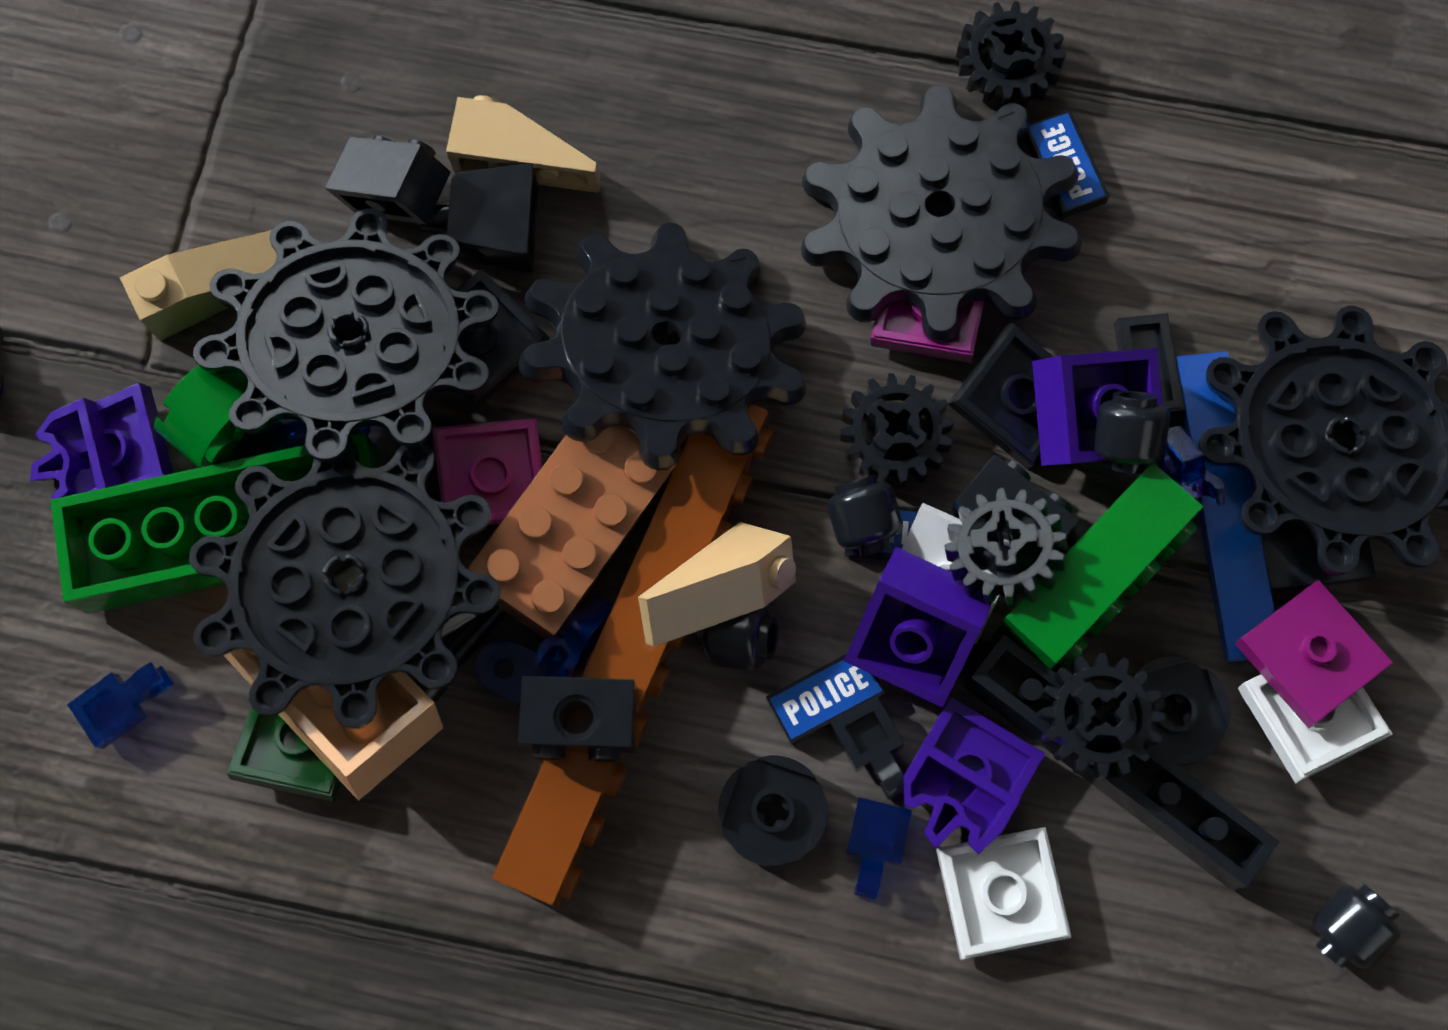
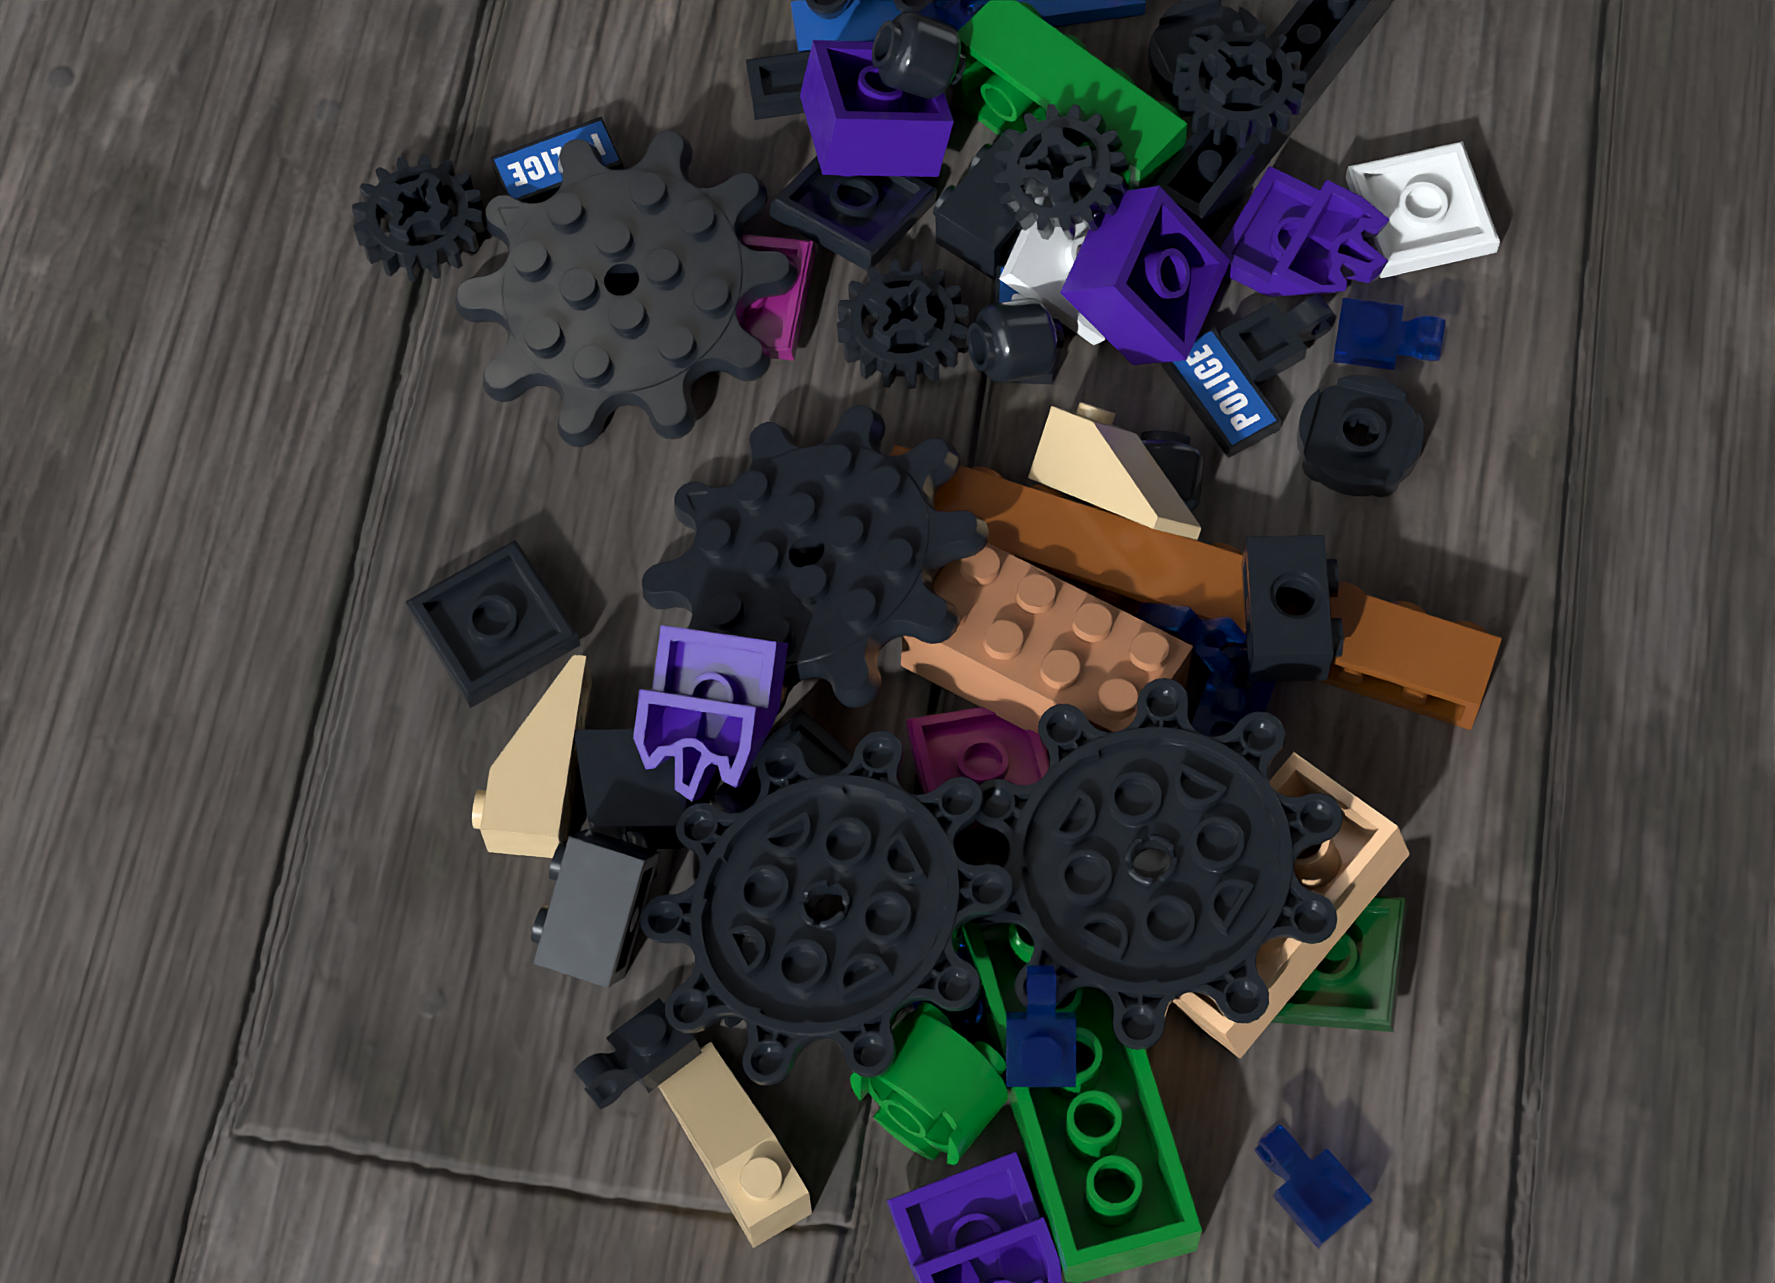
camera: 95 degrees left, 10 degrees down
(212, 480) = (1041, 1040): none -> clear blue plate
(278, 209) = (643, 1051): none -> black plate
(529, 251) = (709, 705): none -> plate
(644, 115) = (493, 623): none -> black plate

